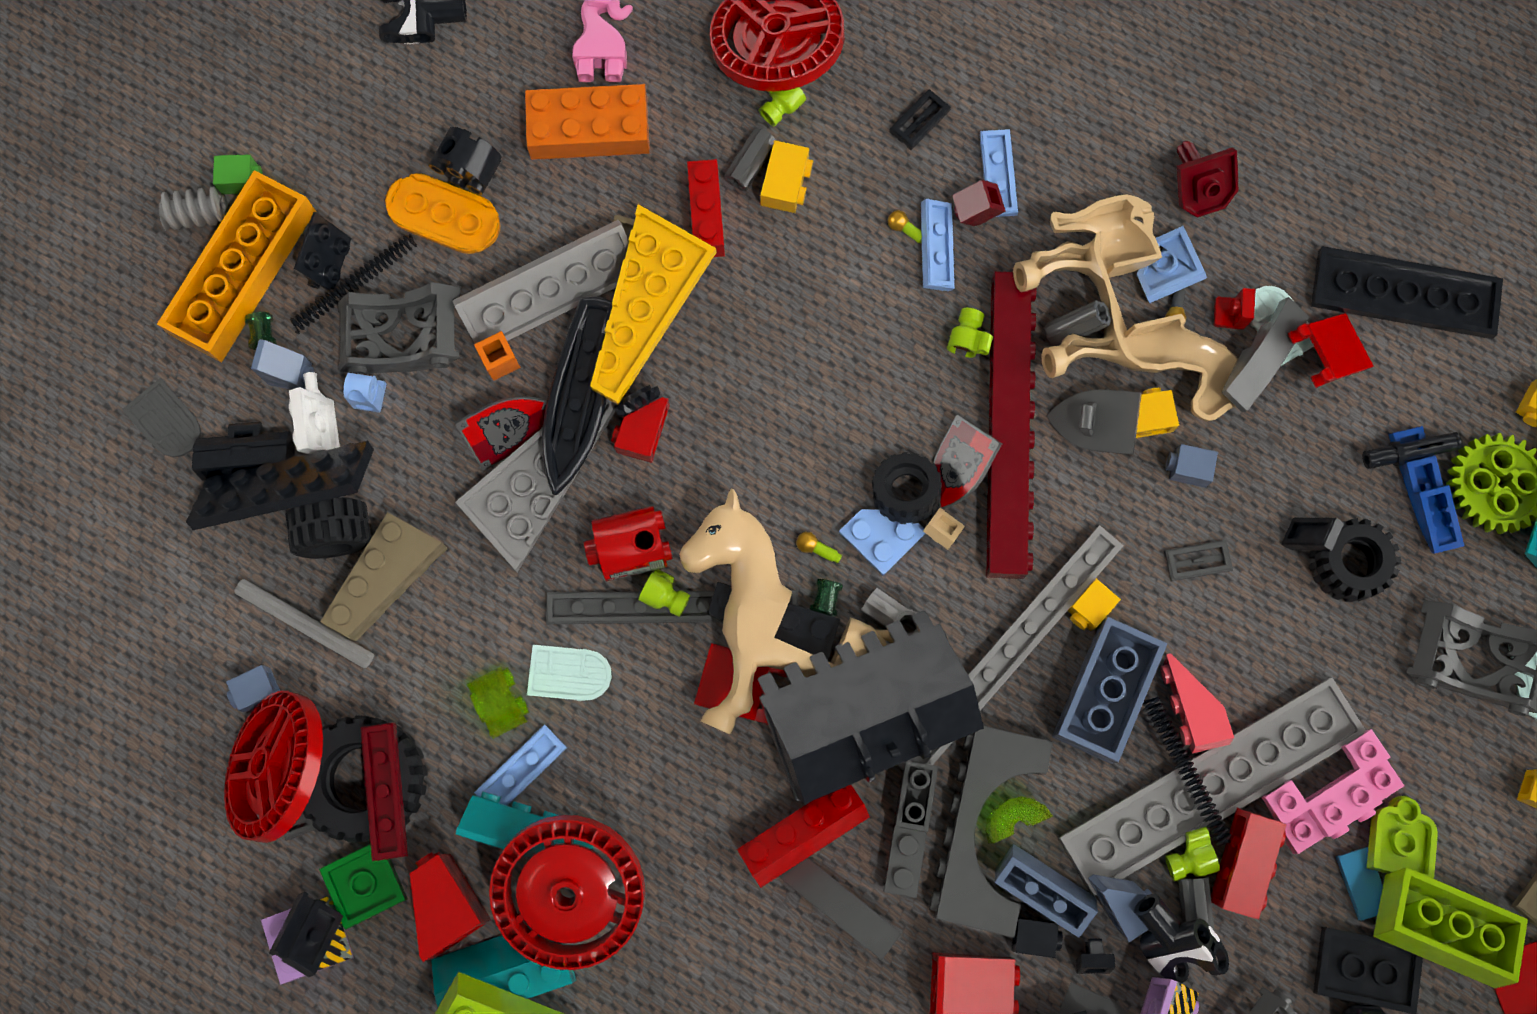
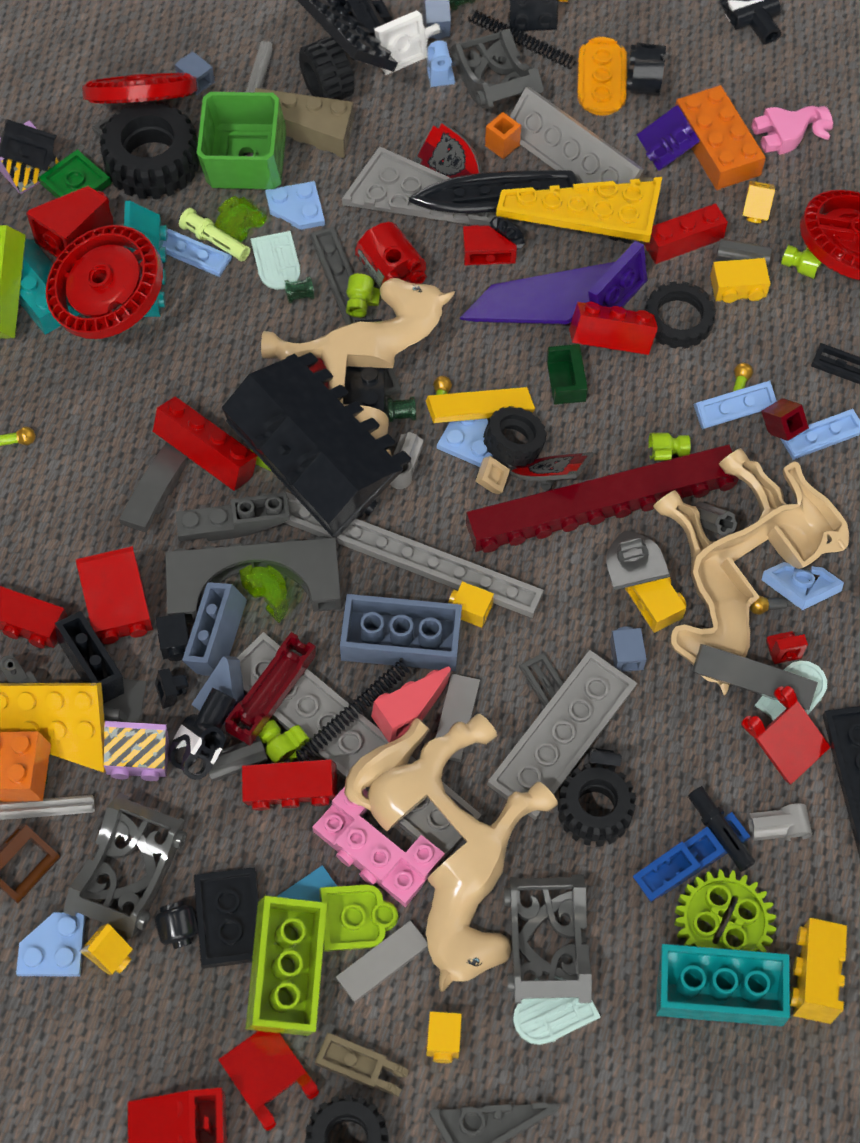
camera: 70 degrees right, 15 degrees down
(374, 668) = (237, 125): none -> bright green plate
(384, 792) = (142, 154): dark red tile -> none
(498, 625) = (296, 204): none -> light blue plate
(499, 744) = (205, 230): none -> yellowish green pin
(567, 176) = (668, 138): none -> dark purple hinge
(625, 660) = (299, 289): none -> clear green bush
(687, 113) = (758, 201): none -> yellow slope
(738, 379) = (555, 295): none -> dark purple piece
(798, 228) = (688, 294): none -> black tyre
(811, 334) = (613, 328): none -> red brick
(843, 404) = (566, 374): none -> dark green panel
(855, 511) = (476, 404): none -> yellow tile
(1141, 851) = (270, 689): none -> dark red piece
(1213, 666) = (458, 706): none -> light grey tile
(1264, 565) = (564, 729): none -> light grey plate
(1299, 747) = (473, 868): none -> tan animal
(1417, 388) = (784, 823): none -> light grey piece
(1453, 828) = (382, 961): none -> light grey tile

